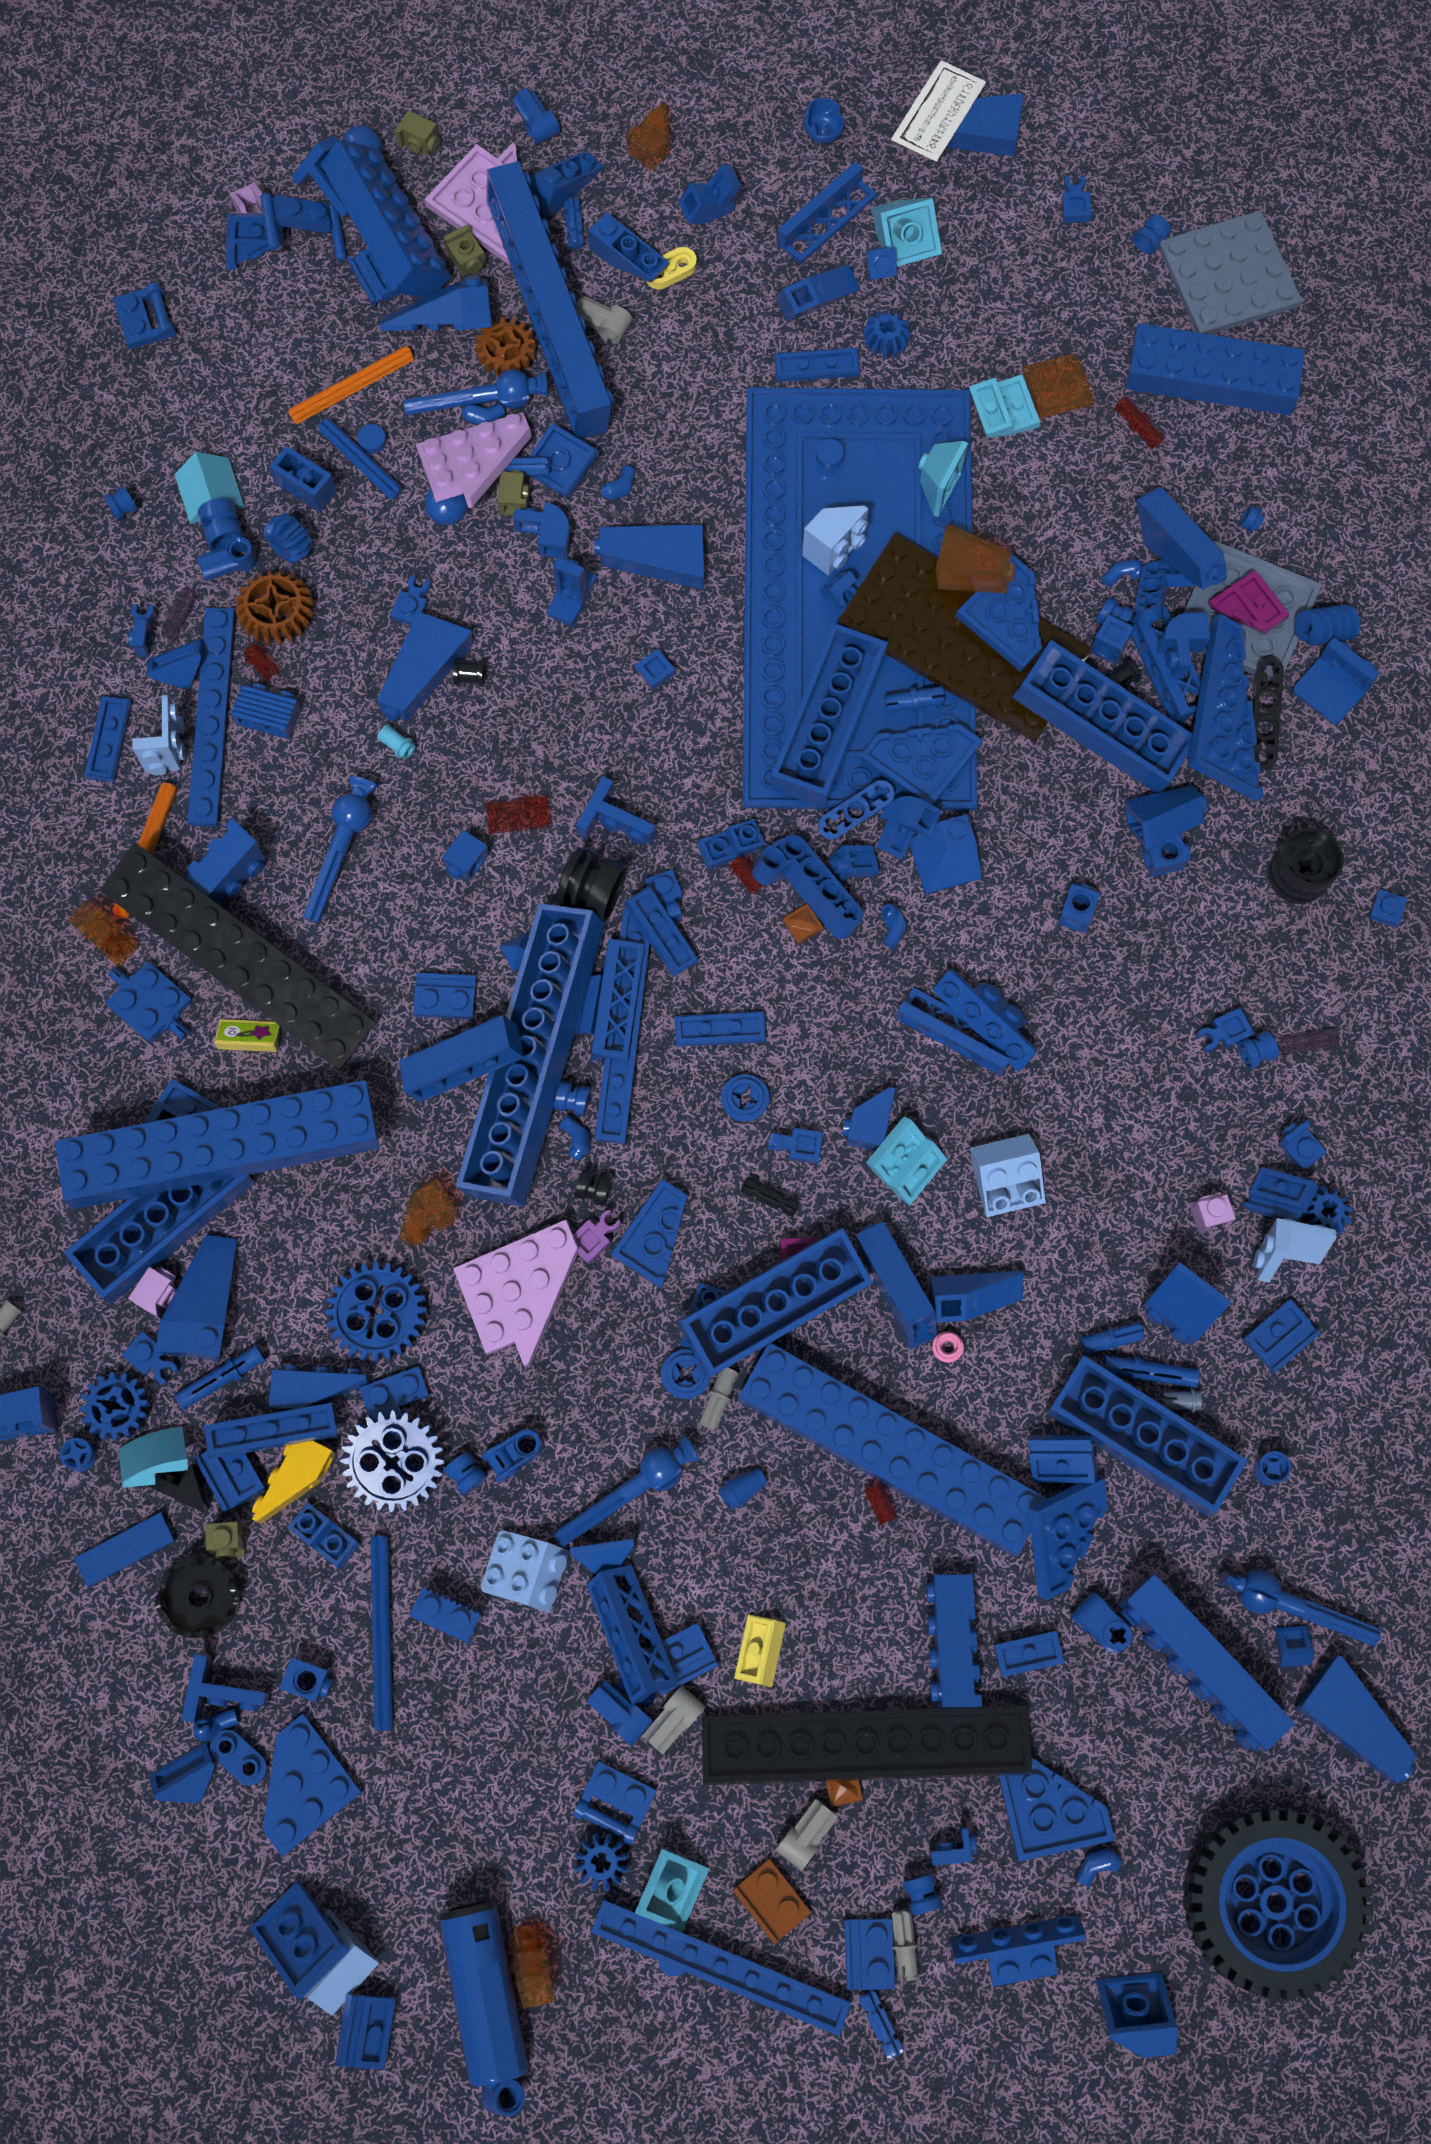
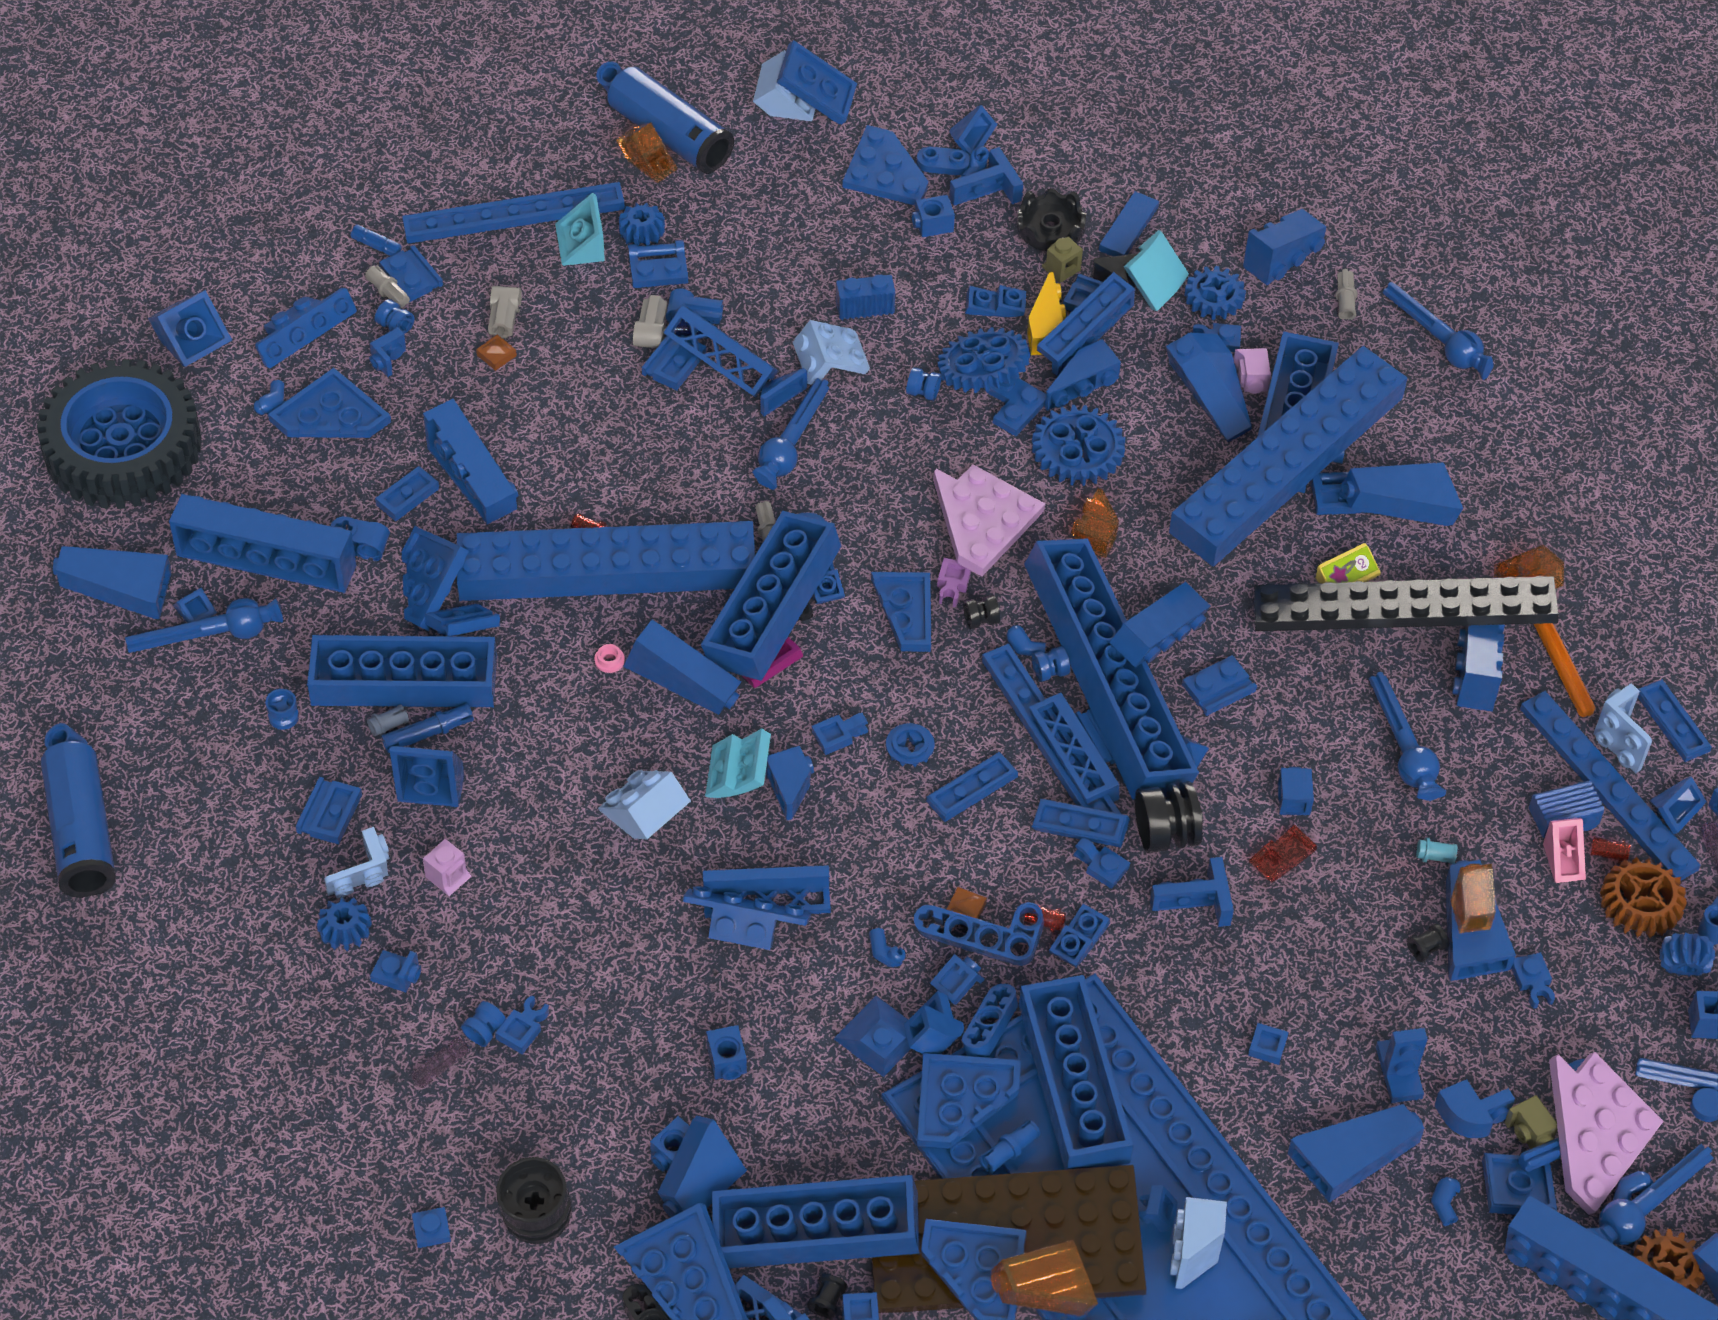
camera: 145 degrees right, 20 degrees down
(72, 1452) = (1213, 254): blue wheel -> none
(135, 1069) = (1404, 492): none -> blue slope
(148, 1003) = (1445, 550): blue plate -> none
(251, 1357) = (1153, 356): blue pin -> none
(299, 678) = (1566, 850): none -> bright pink slope
(365, 2031) = (733, 68): blue plate -> none
(381, 1633) = (906, 272): blue axle -> none
(420, 654) = (1474, 898): none -> clear orange slope
(512, 1456) = (897, 415): blue piece -> none
(741, 1489) = (707, 479): blue cone -> none
(760, 1650) = (616, 398): light yellow slope -> none
(770, 1196) = (833, 686): black axle -> none
(771, 1901) = (502, 267): dark orange plate -> none
(866, 1745) = (497, 372): black plate -> none
(973, 1294) = (617, 691): blue slope -> none
(1112, 1338) = (475, 733): blue axle -> none
(1280, 1195) = (392, 907): blue plate -> none

